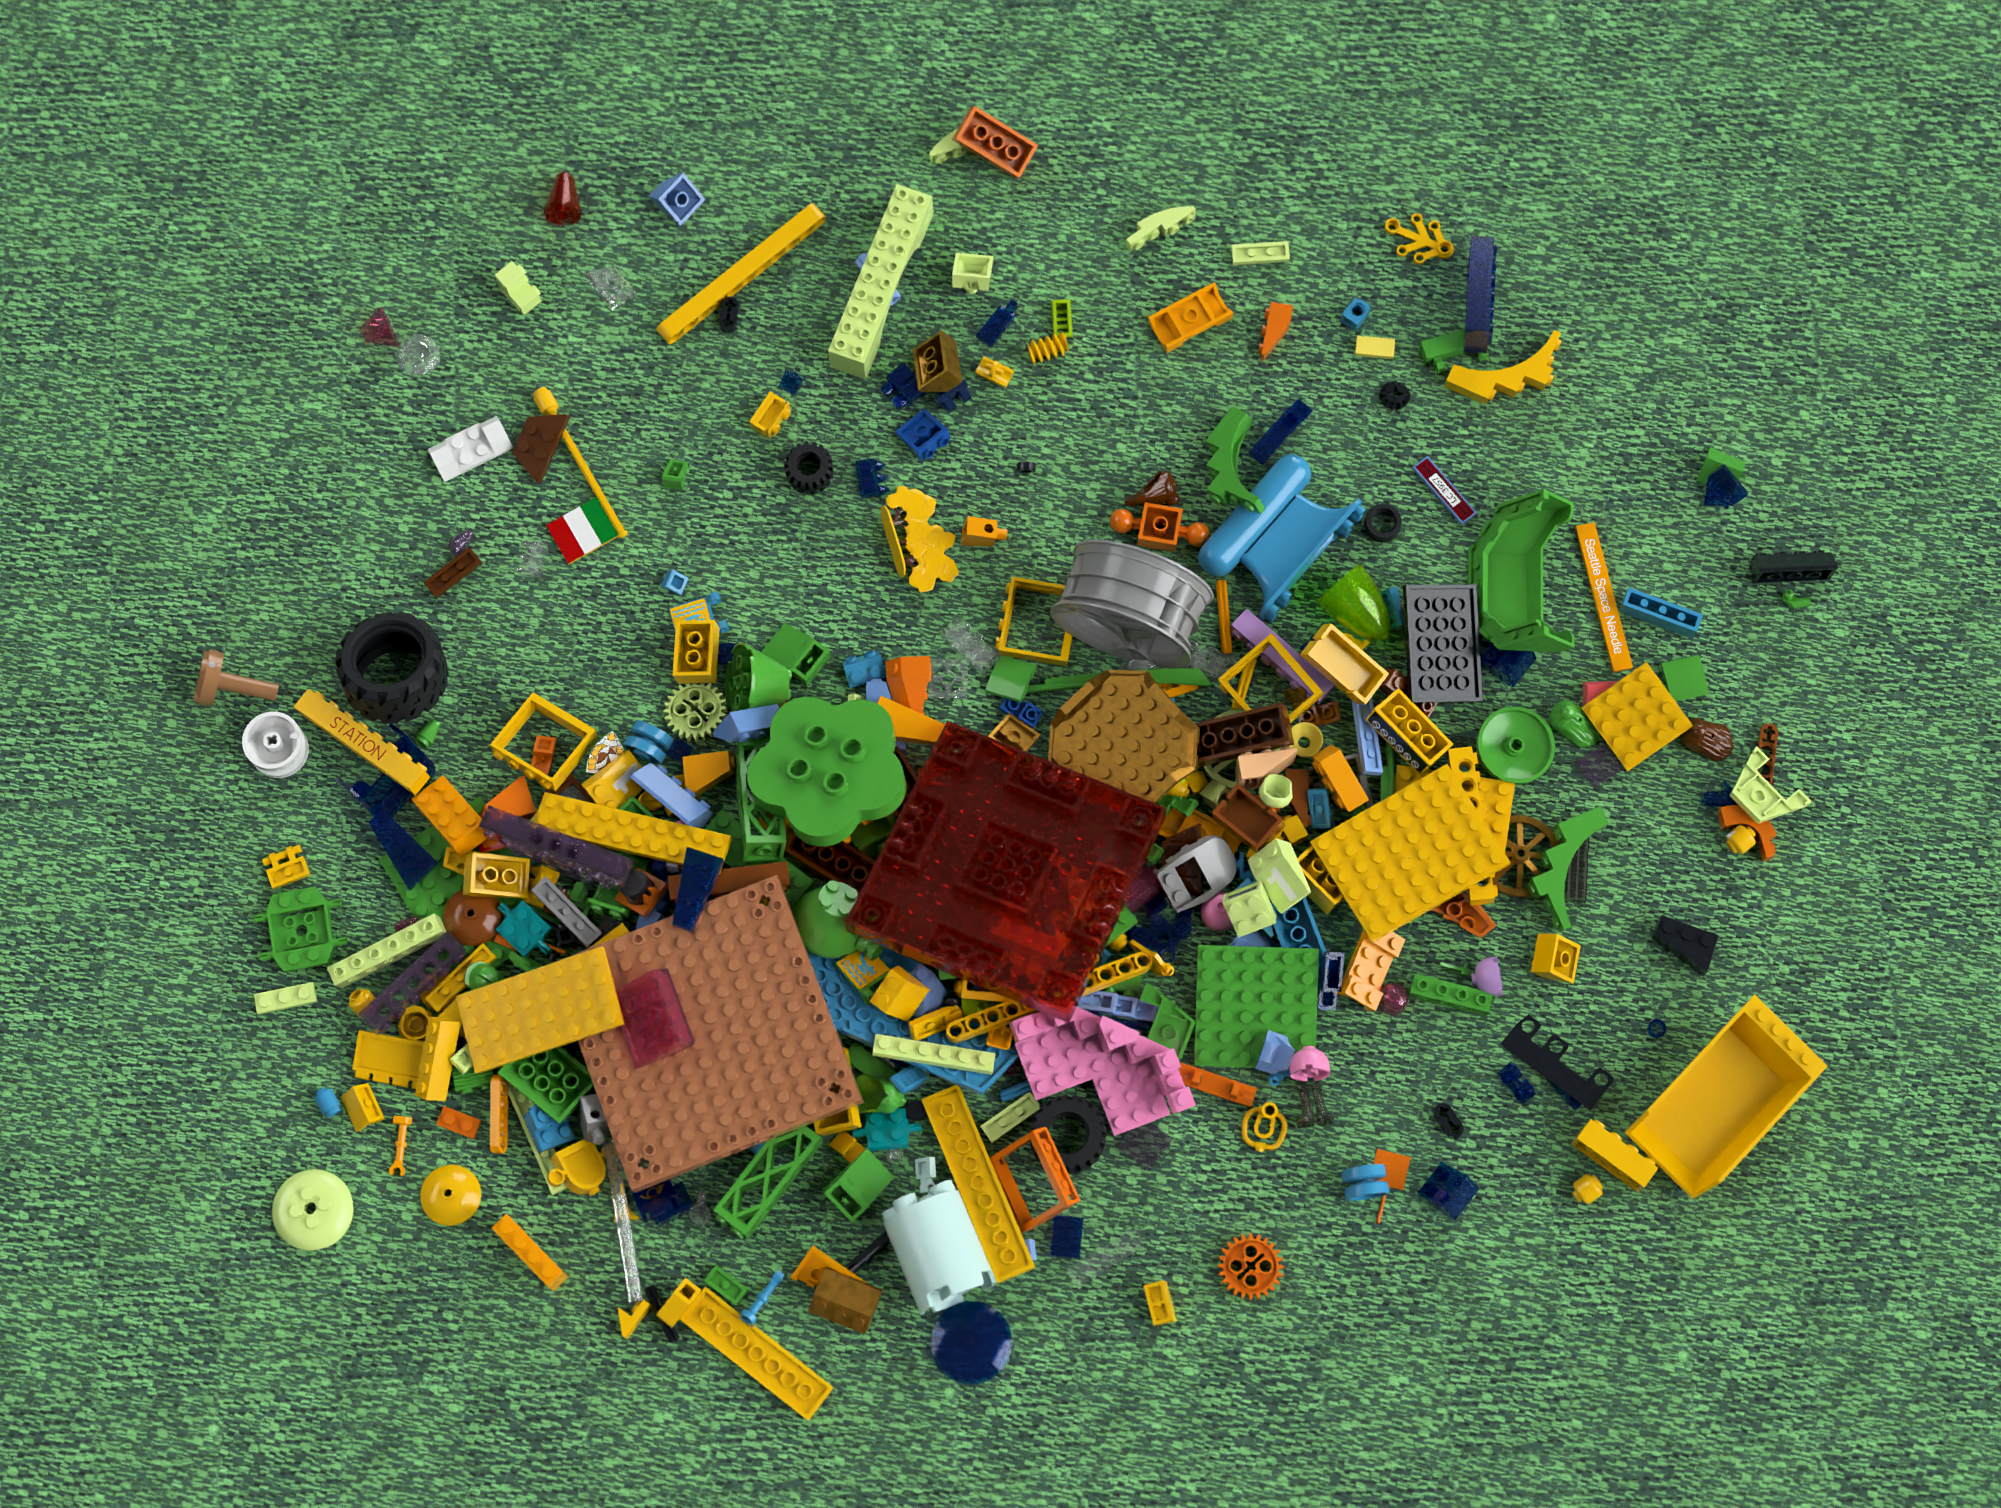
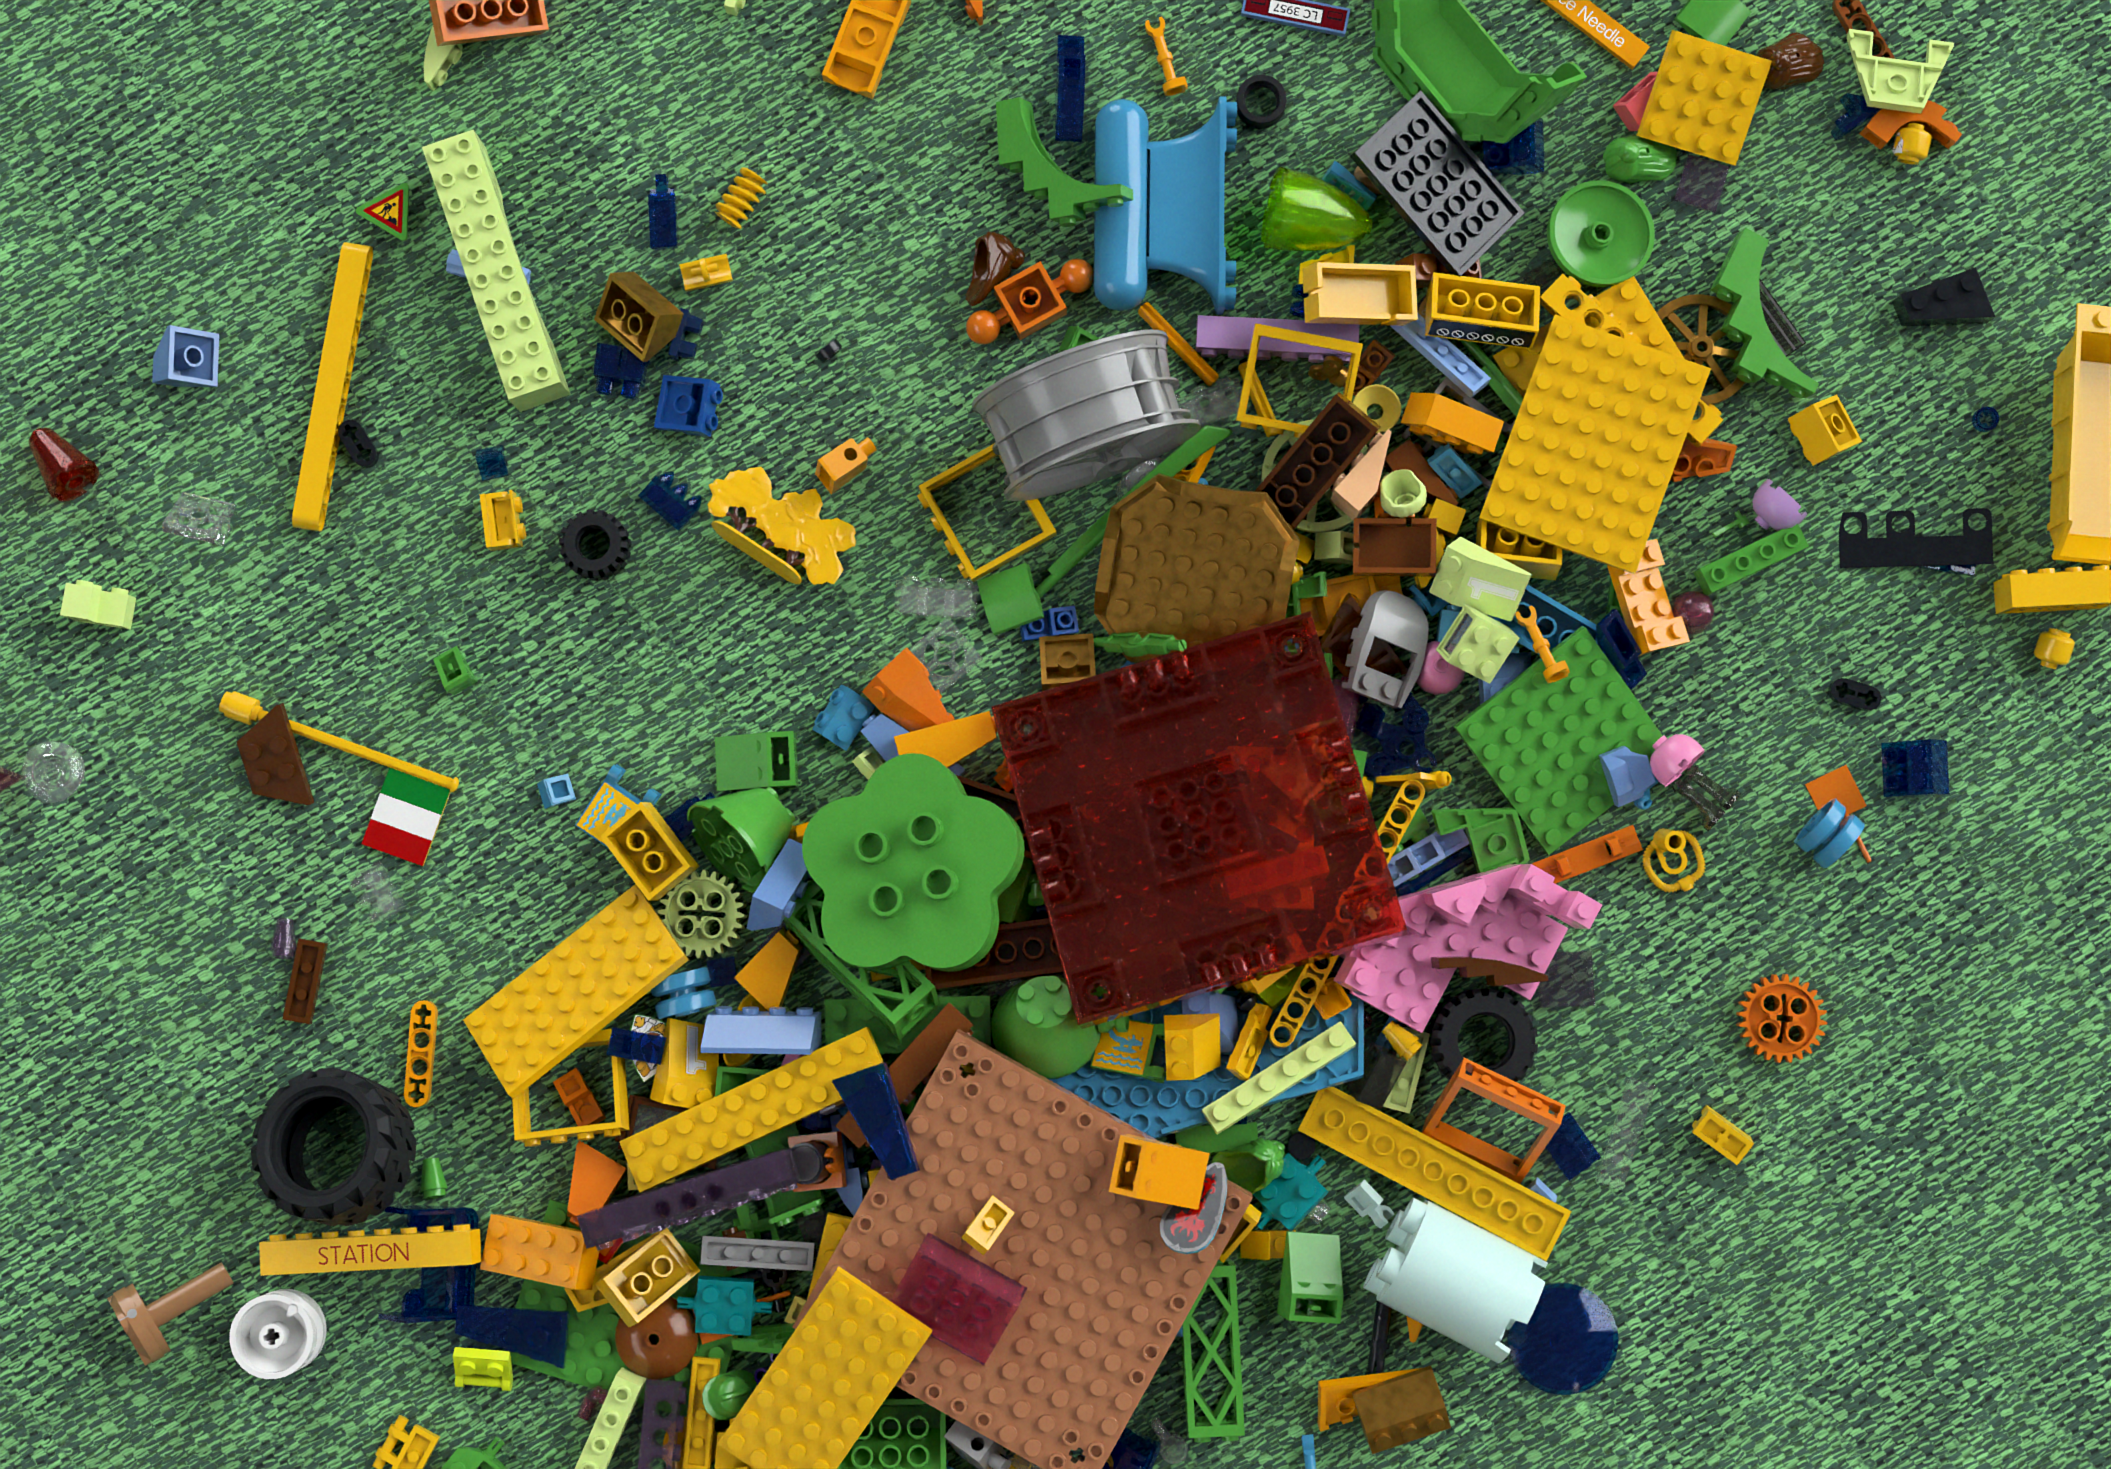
camera: 40 degrees left, 10 degrees up
(369, 851) = (484, 1363): none -> neon yellow plate
(470, 448) = (202, 827): white piece -> none
(478, 660) = (425, 1054): none -> light orange beam
(539, 872) = (694, 1231): yellow plate -> none
(591, 693) = (575, 991): none -> yellow plate
(598, 747) = (636, 1045): none -> clear blue slope
(703, 991) = (987, 1225): none -> yellow slope
(820, 1036) = (1158, 1171): none -> light orange slope
(822, 1076) = (1192, 1229): none -> shield
(851, 206) = (389, 211): none -> piece
(892, 1263) = (1414, 1329): none -> light orange slope
(909, 1079) = (1269, 1120): dark azure slope -> none
(972, 272) = (587, 178): yellowish green brick -> none
(990, 1105) = (1379, 1076): none -> clear smoke hinge
(1021, 1096) = (1401, 1040): none -> yellow cone
(1057, 754) = (1134, 646): none -> bright green piece
(1061, 303) = (727, 138): lime slope -> none
(1107, 1100) = (1496, 972): none -> reddish brown slope
(1280, 957) = (1553, 671): none -> light orange piece
(1340, 475) = (1172, 85): none -> light orange piece
(1521, 1090) = (1904, 598): clear blue hinge -> none

